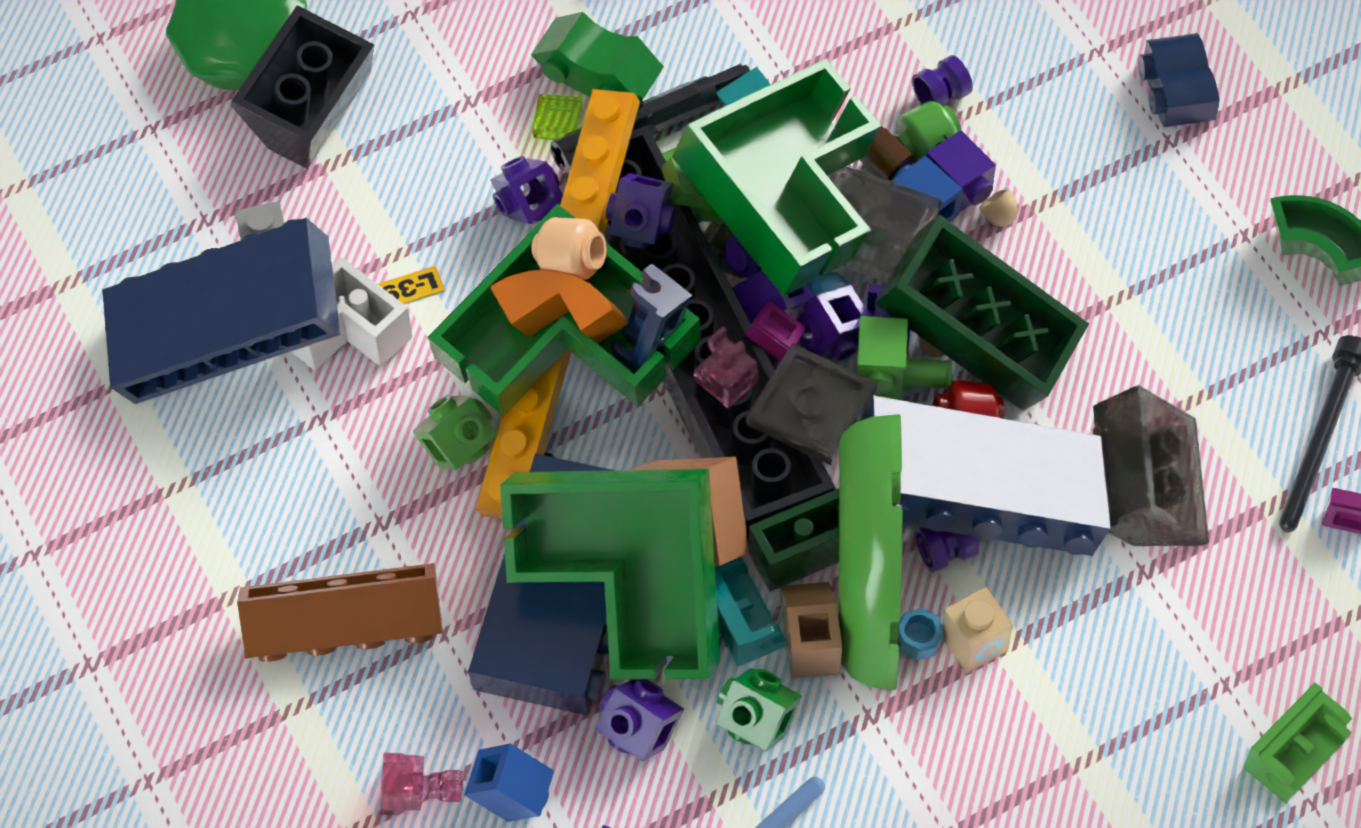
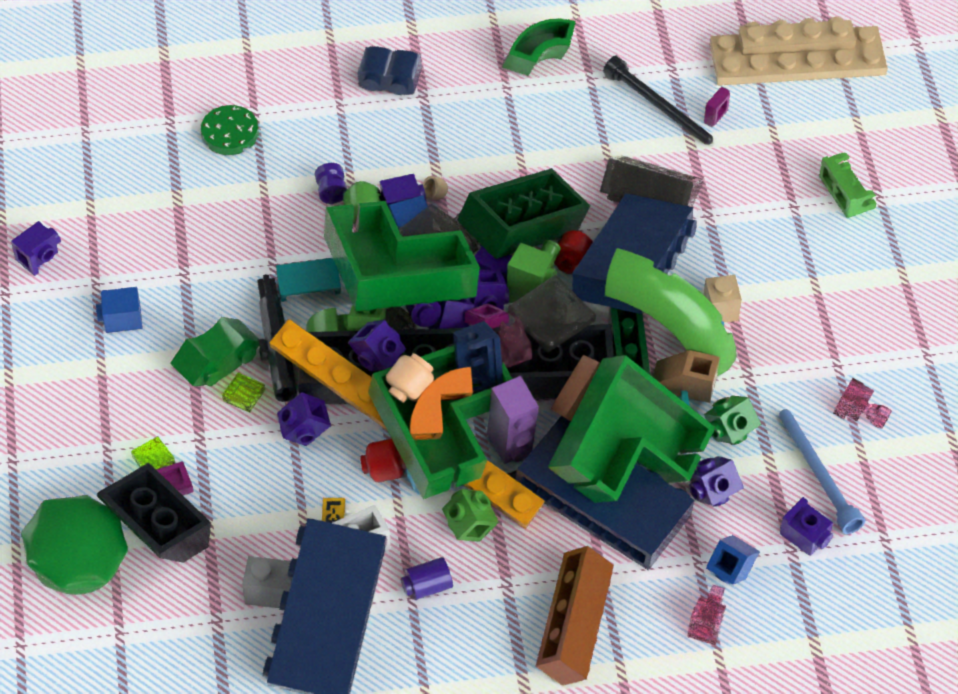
camera: 70 degrees left, 5 degrees down
(342, 421) = (427, 579): none -> dark purple brick
(390, 96) = (178, 477): none -> magenta tile
(417, 61) = (153, 452): none -> clear neon green tile
(605, 415) = (512, 420): none -> medium lavender brick

